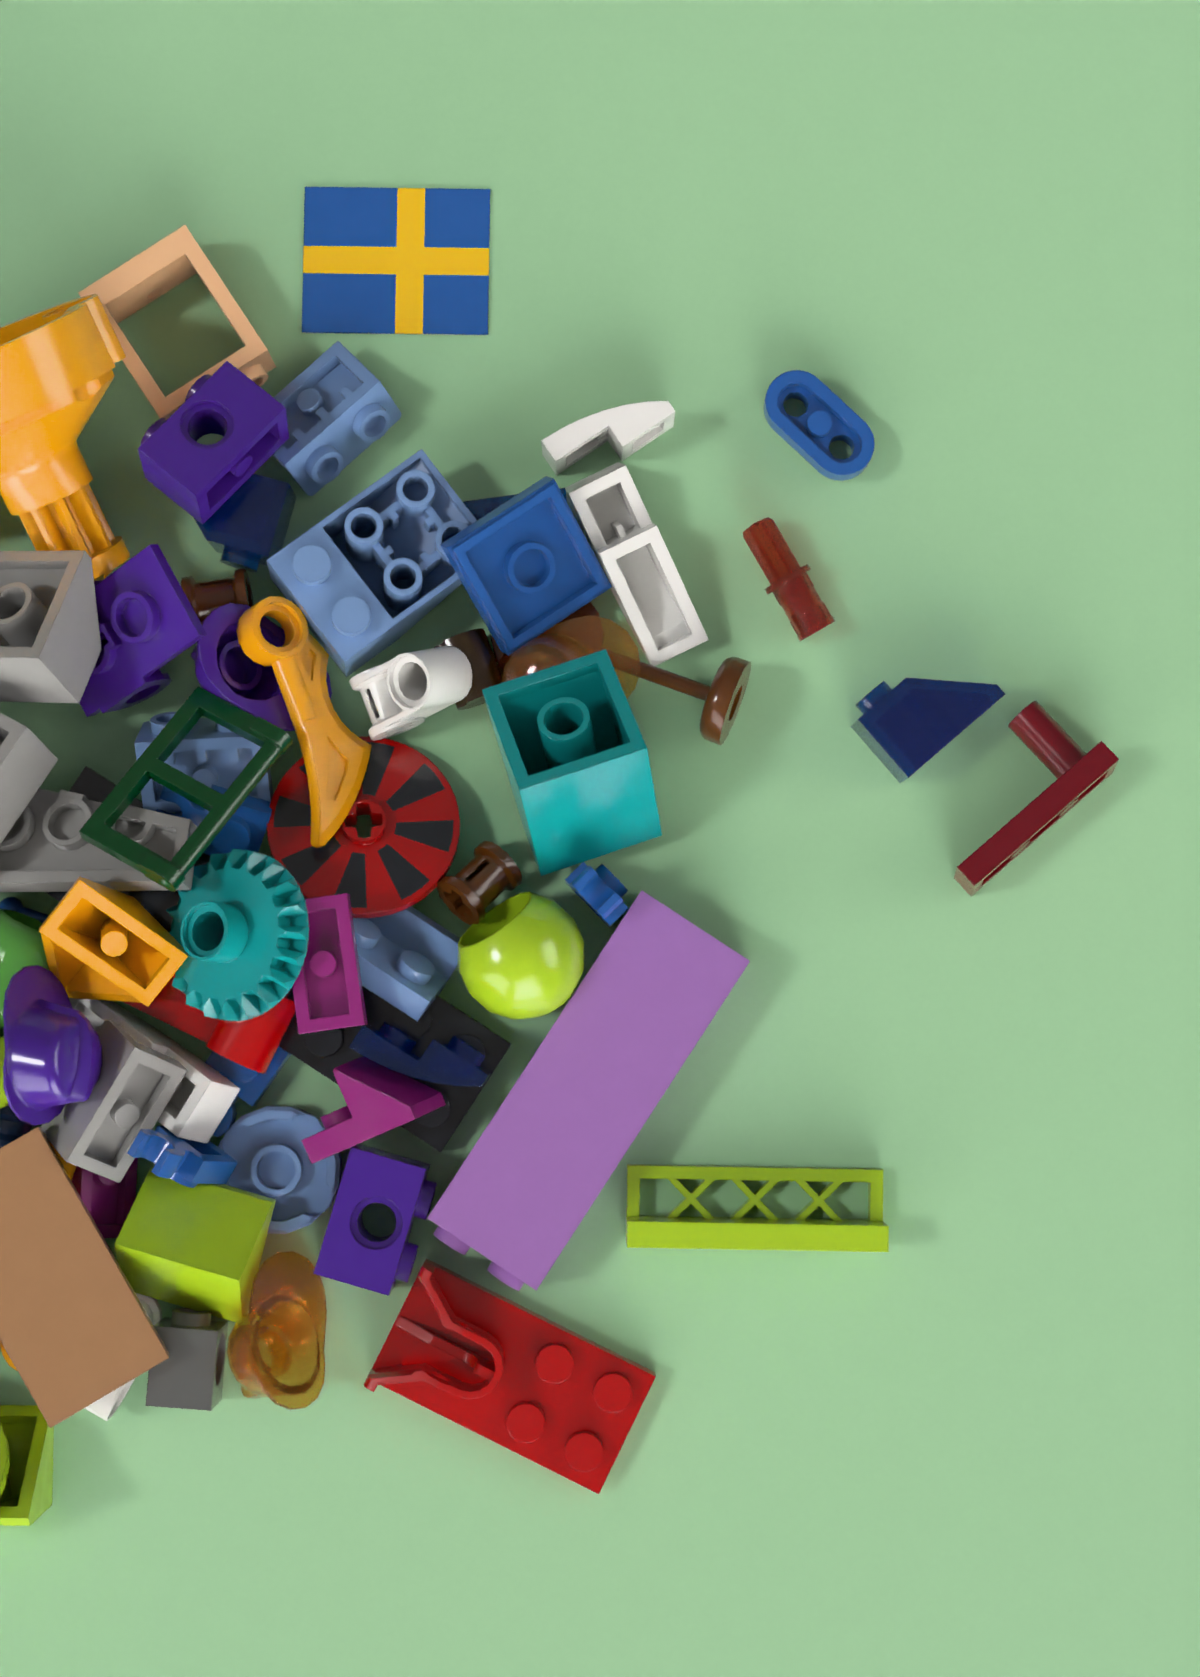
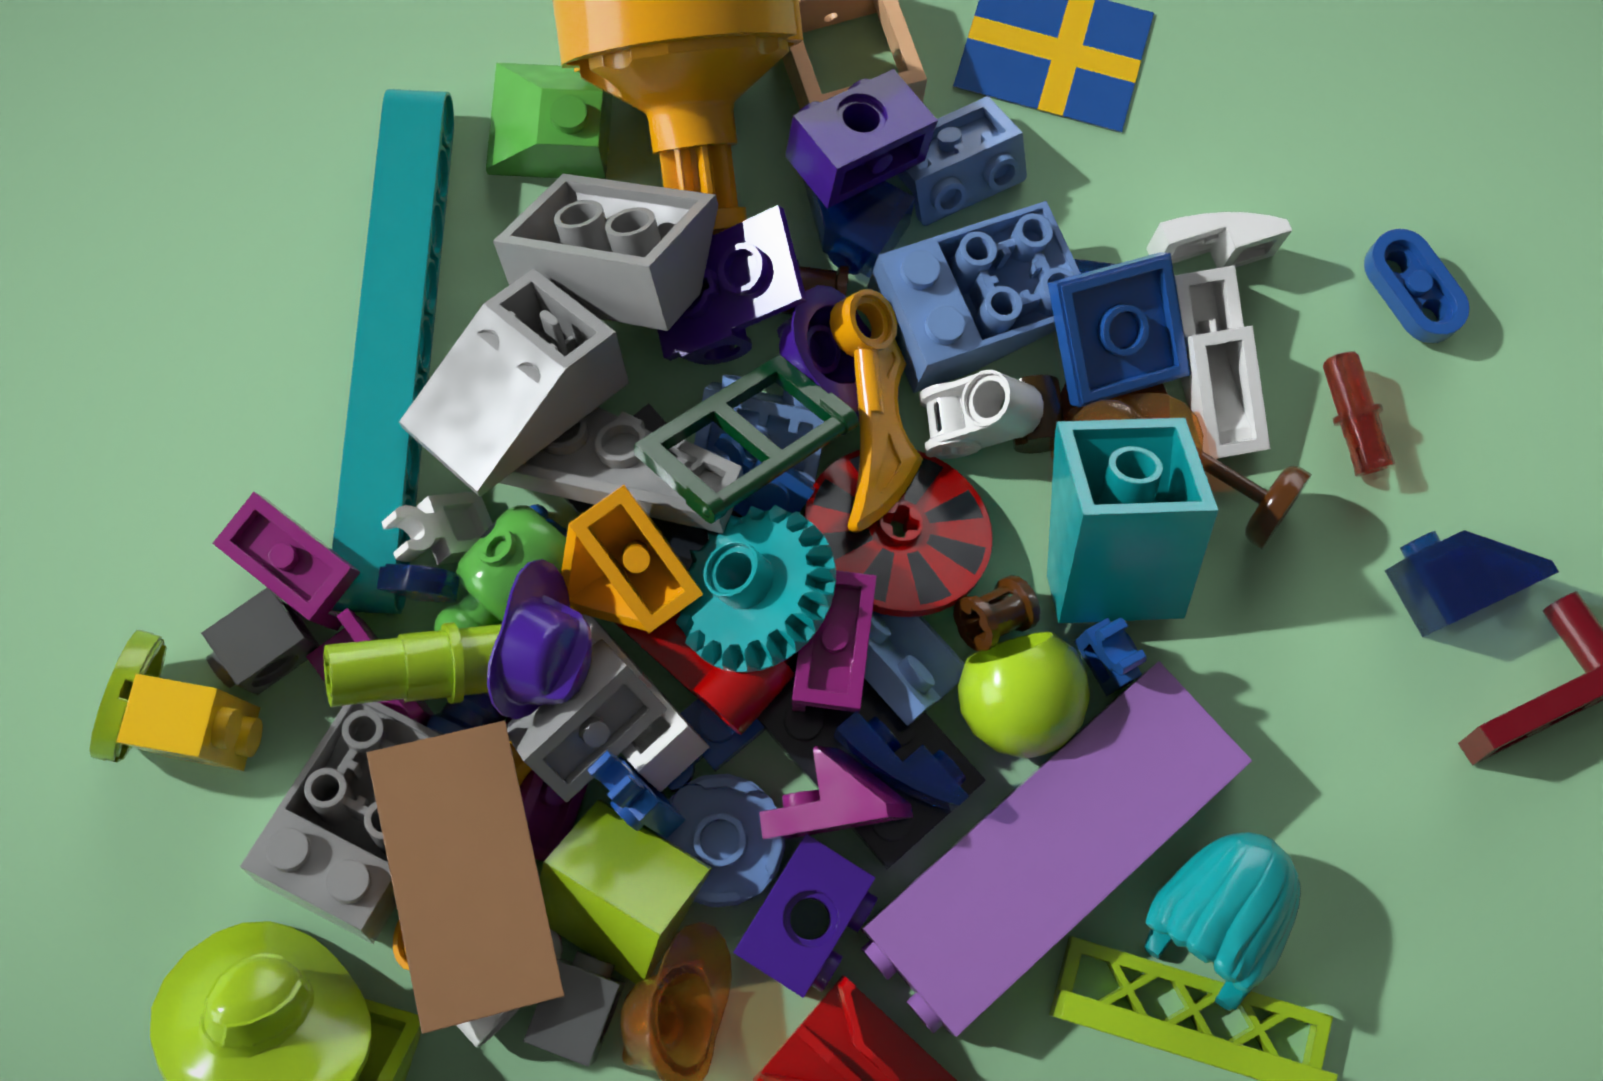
camera: 15 degrees right, 10 degrees down
(759, 1106) = (1229, 909): none -> teal hair

